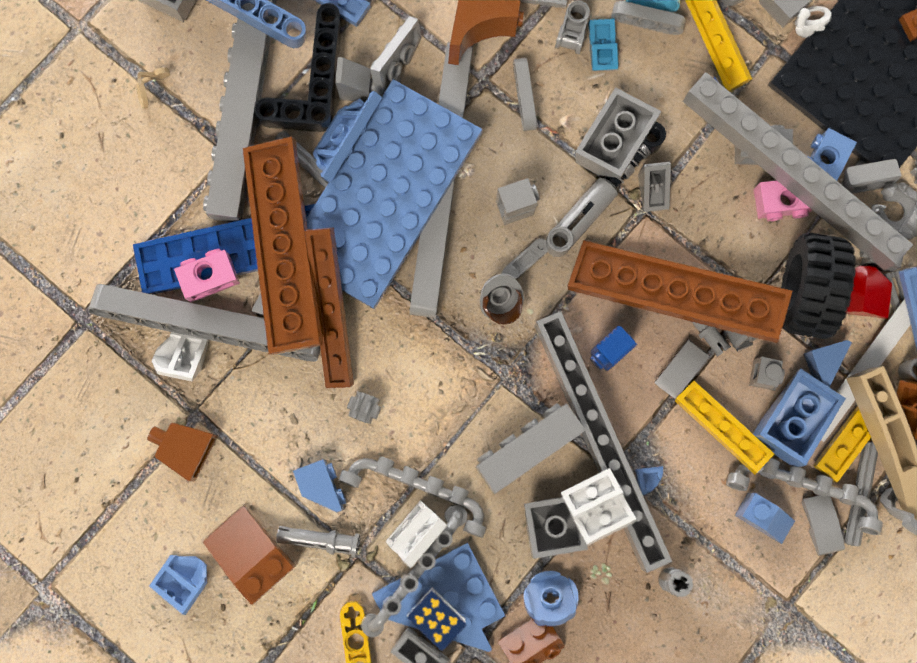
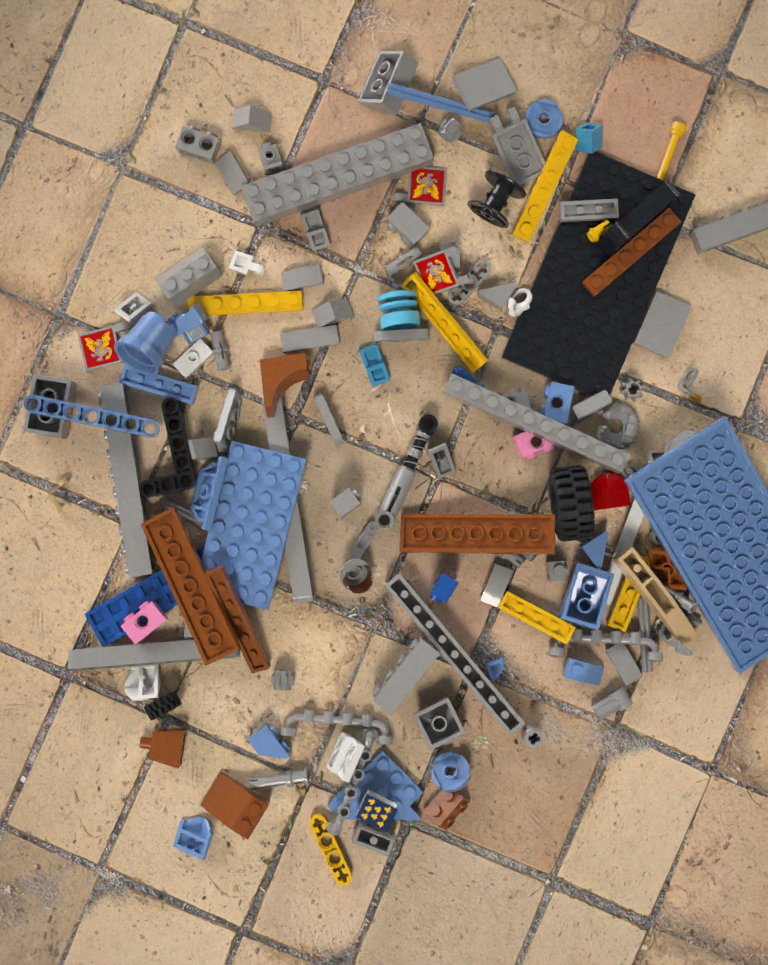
camera: 15 degrees left, 5 degrees up
(195, 392) = (162, 705): none -> black tyre
(572, 30) = (349, 361): light grey piece -> none
(598, 507) = (464, 702): white slope -> none
(616, 135) = (402, 432): light grey slope -> none
(799, 571) = (615, 701): none -> light grey piece

